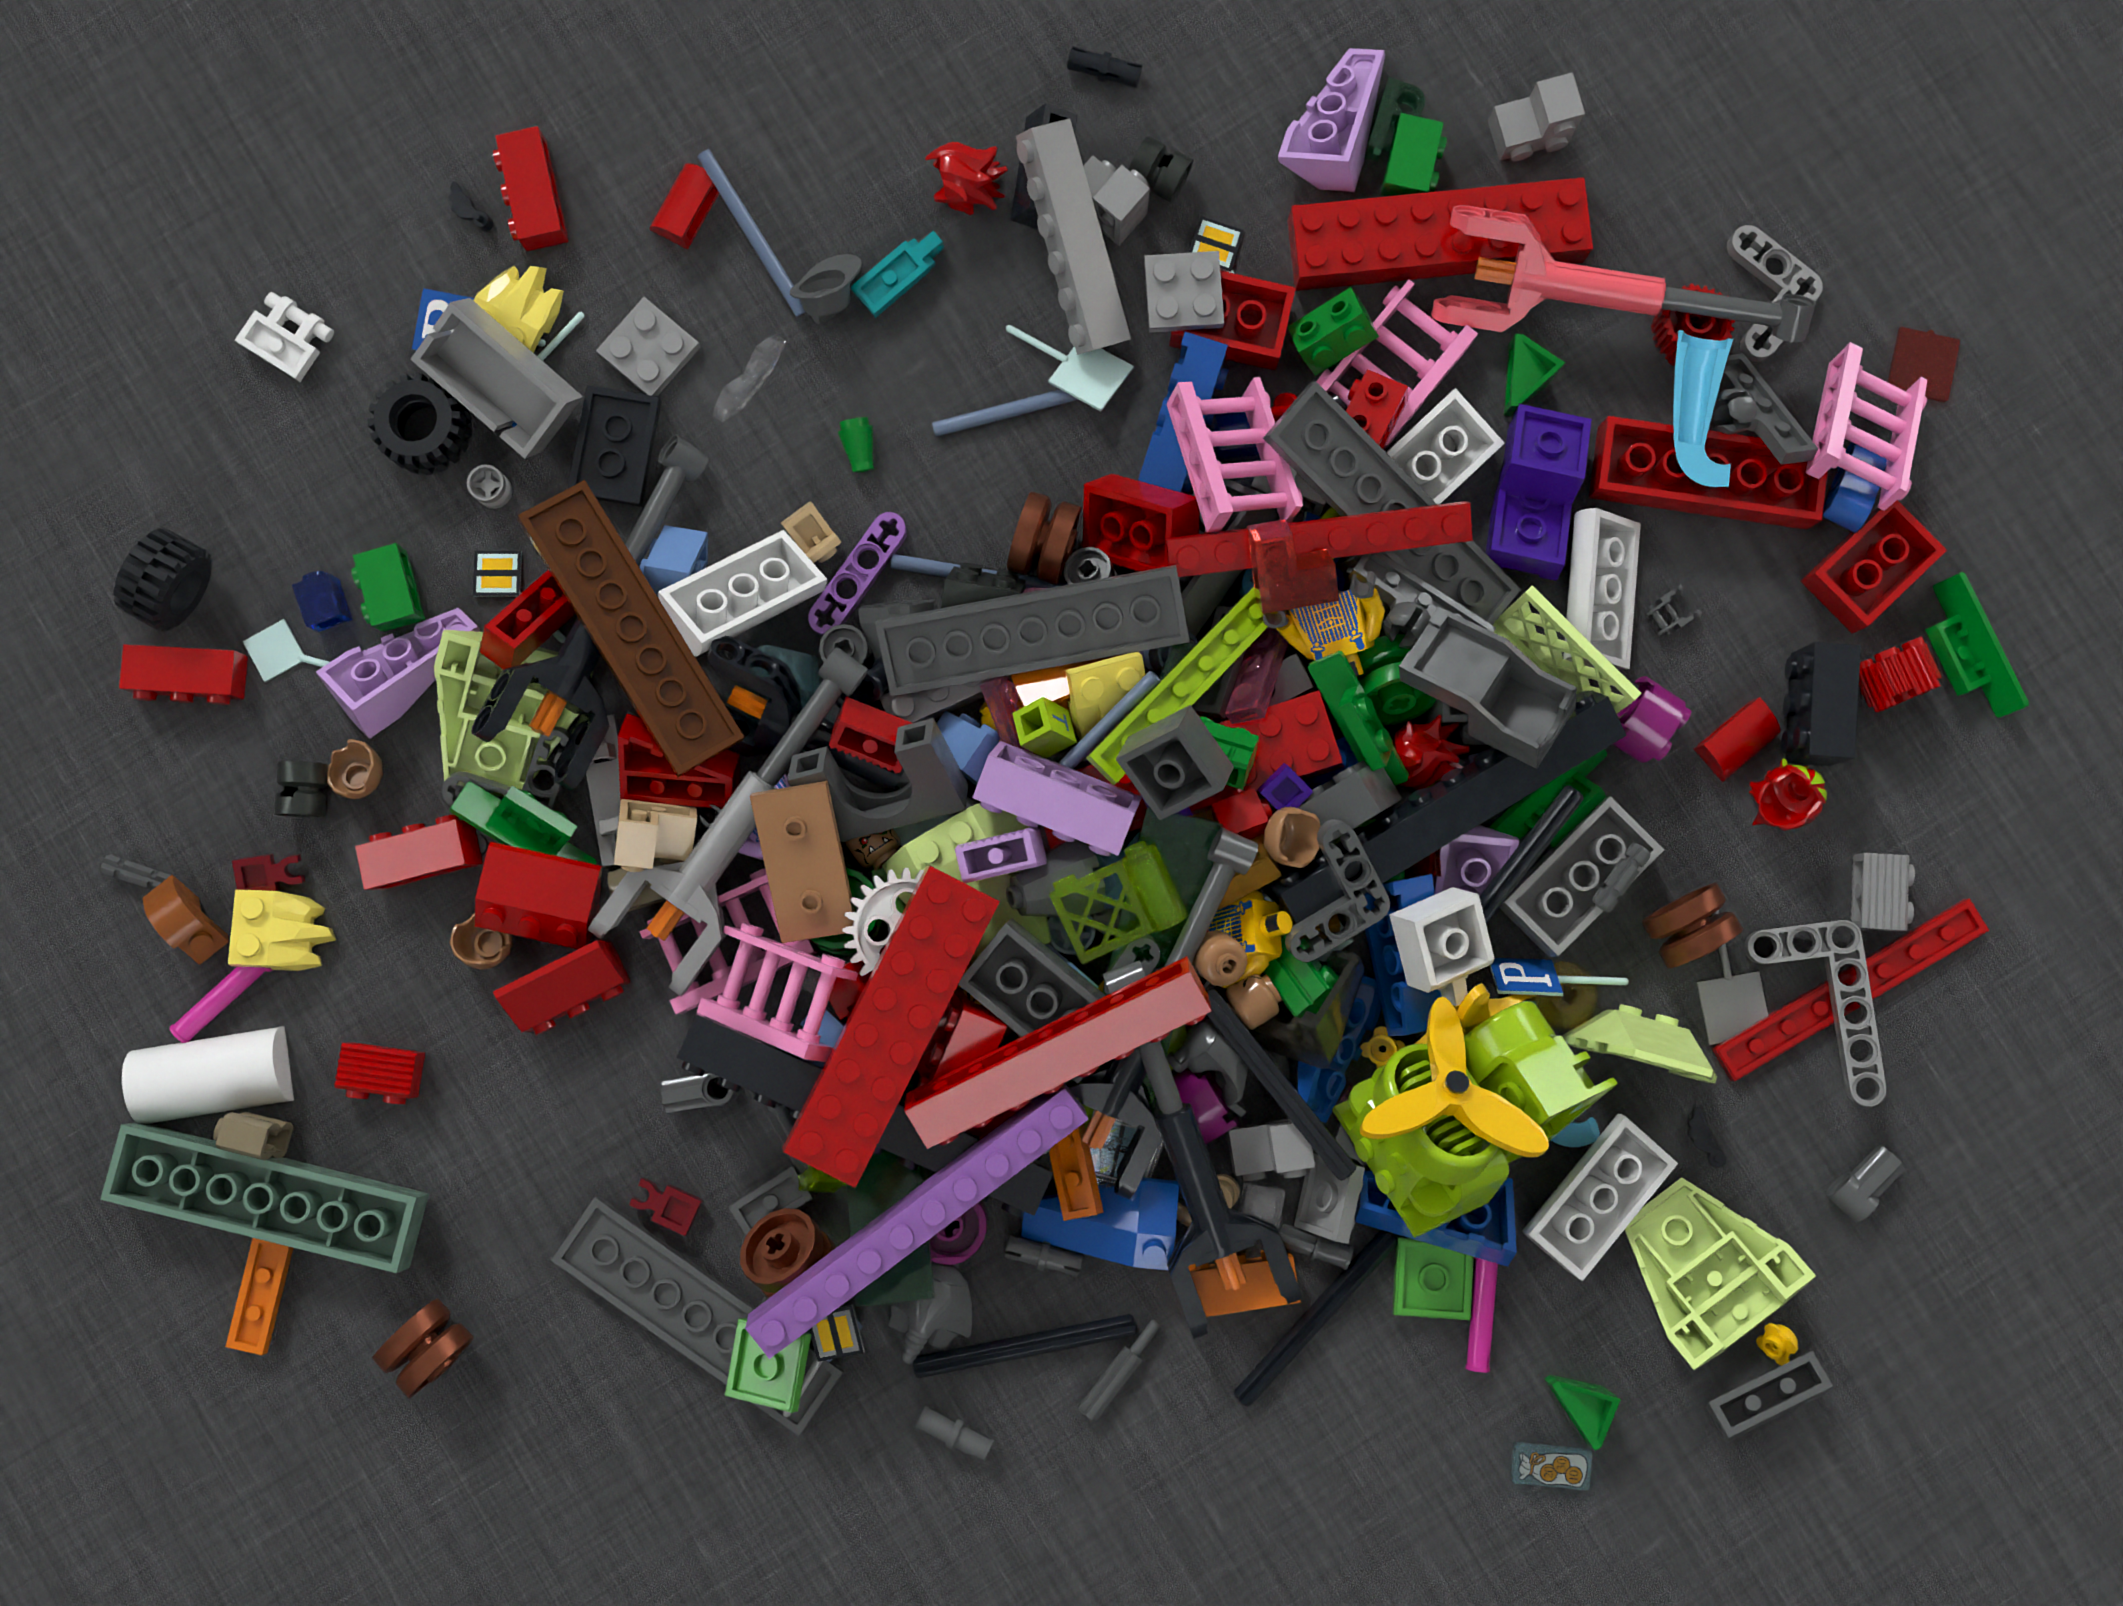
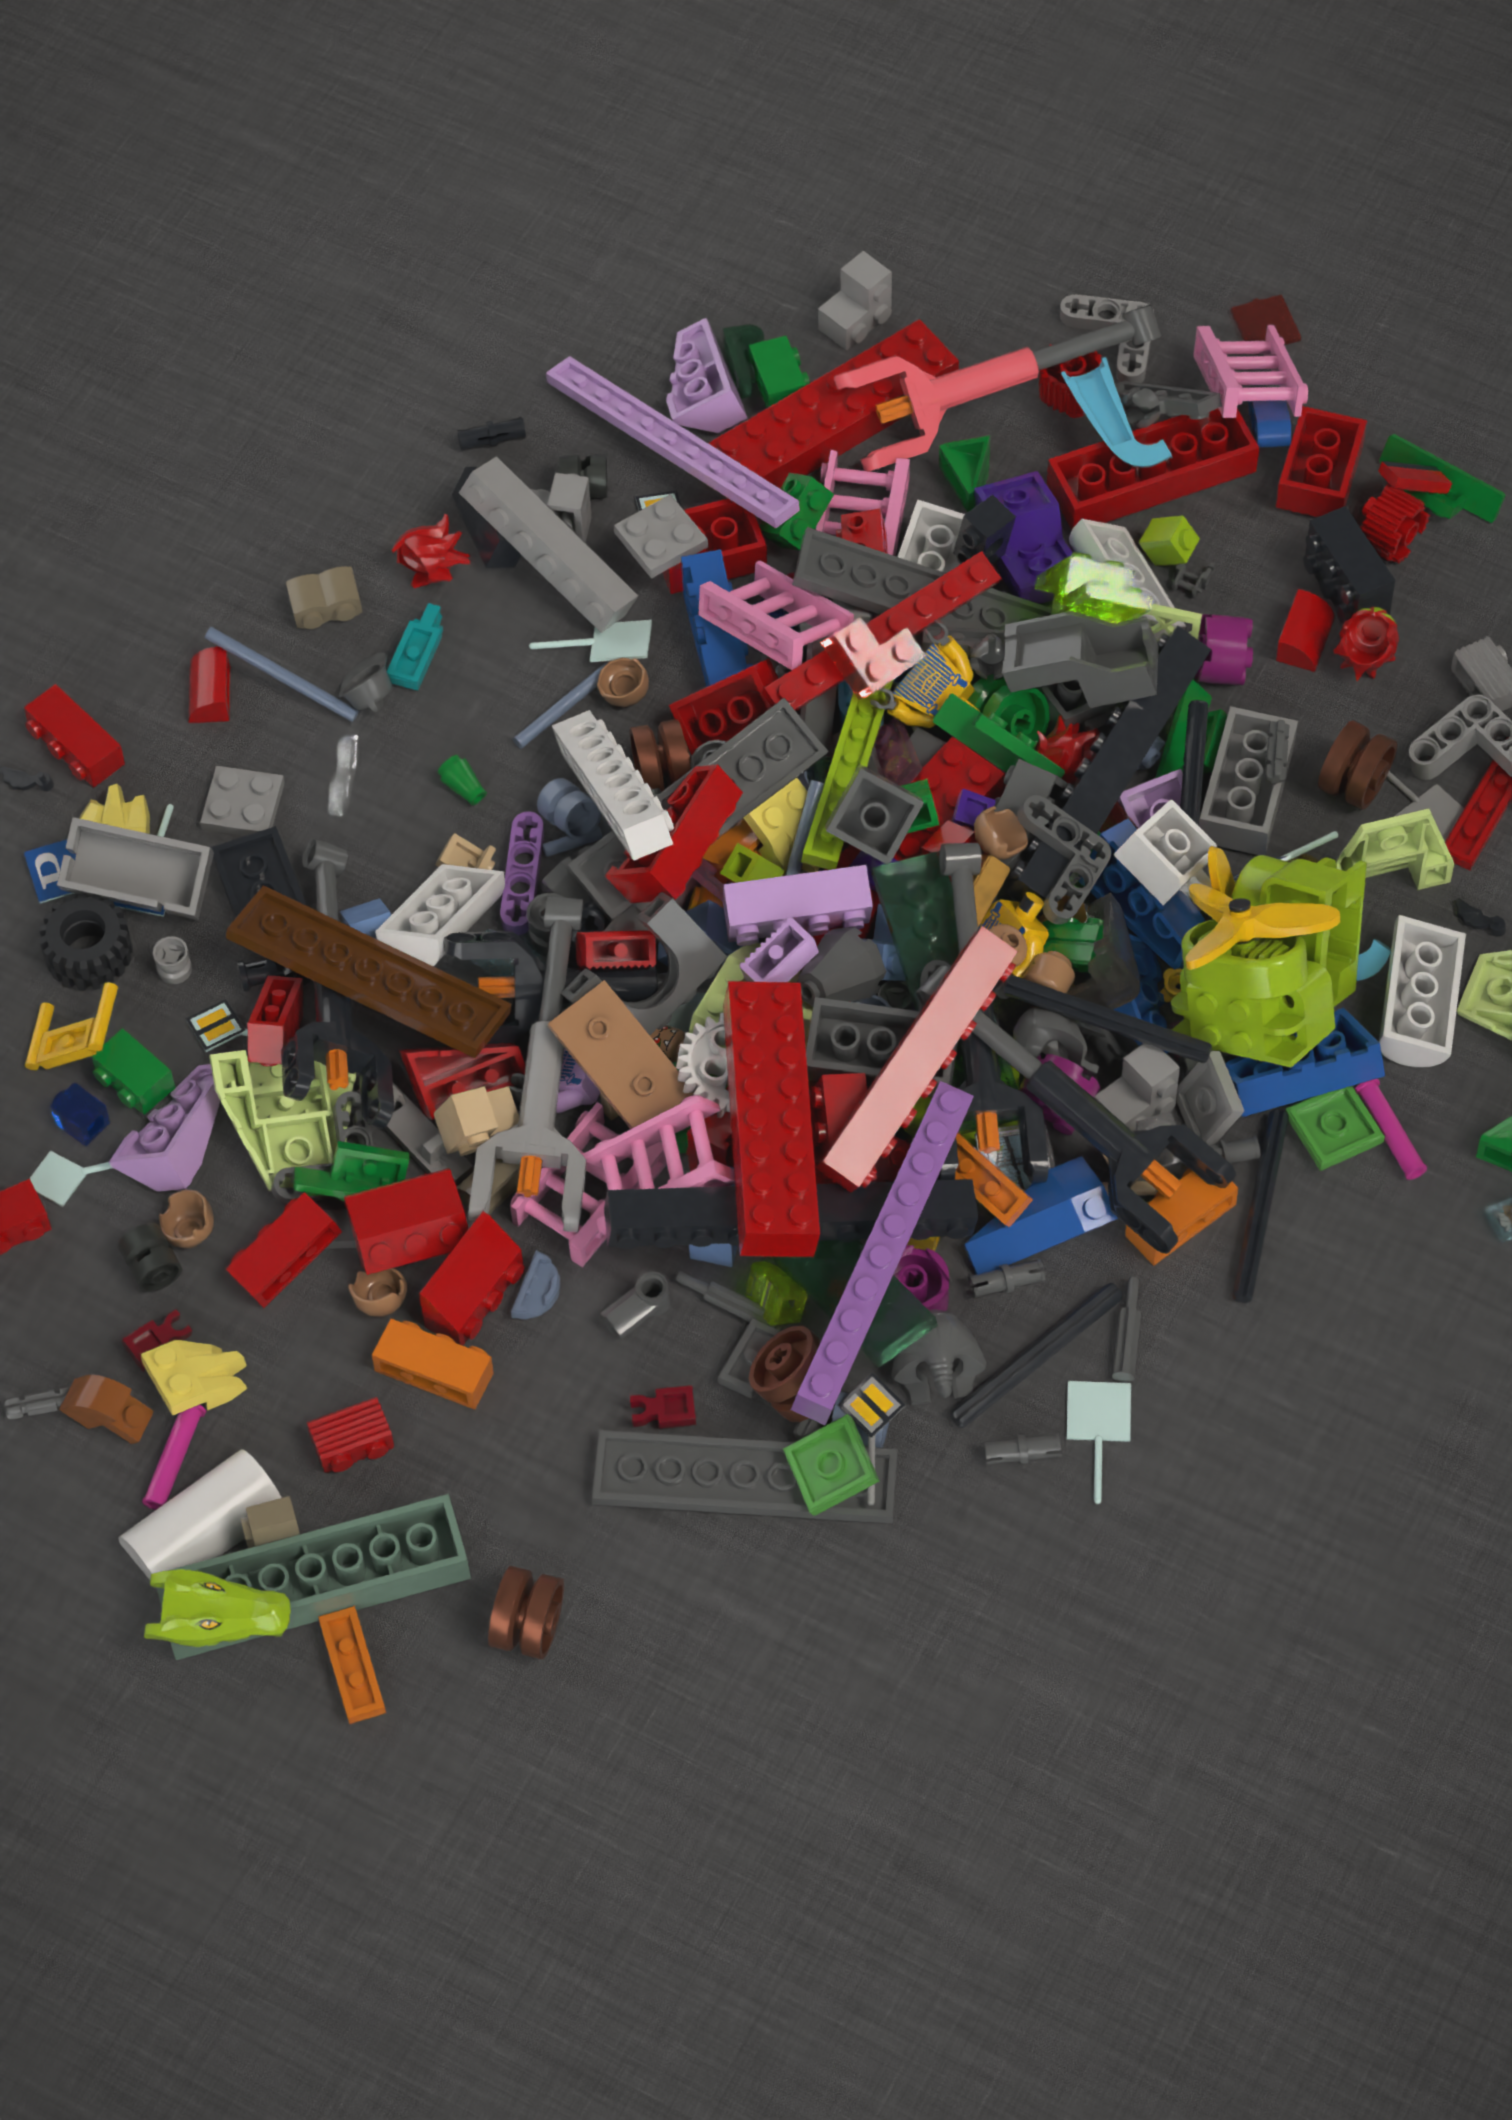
camera: 30 degrees left, 25 degrees down
(144, 1193) = (209, 1610): none -> lime animal
(344, 524) = (71, 1041): none -> yellow plate
(490, 1041) = (433, 1363): none -> orange brick
(626, 1019) = (538, 1289): none -> sand blue plate
(842, 167) = (324, 597): none -> dark tan brick
(932, 537) = (568, 808): none -> sand blue wheel
(965, 564) = (614, 784): none -> white brick
(987, 663) = (697, 813): none -> red wedge
(1044, 1432) = (1100, 1414): none -> light aqua piece
(1064, 423) = (623, 682): none -> medium nougat hair
(1147, 887) = (905, 918): clear neon green piece -> none
(1261, 187) = (673, 442): none -> lavender plate
(1488, 475) = (985, 530): none -> black brick
(1546, 621) = (1094, 589): none -> clear neon green bracket
(1671, 567) = (1169, 540): none -> lime brick
(1952, 640) = (1415, 477): none -> red tile

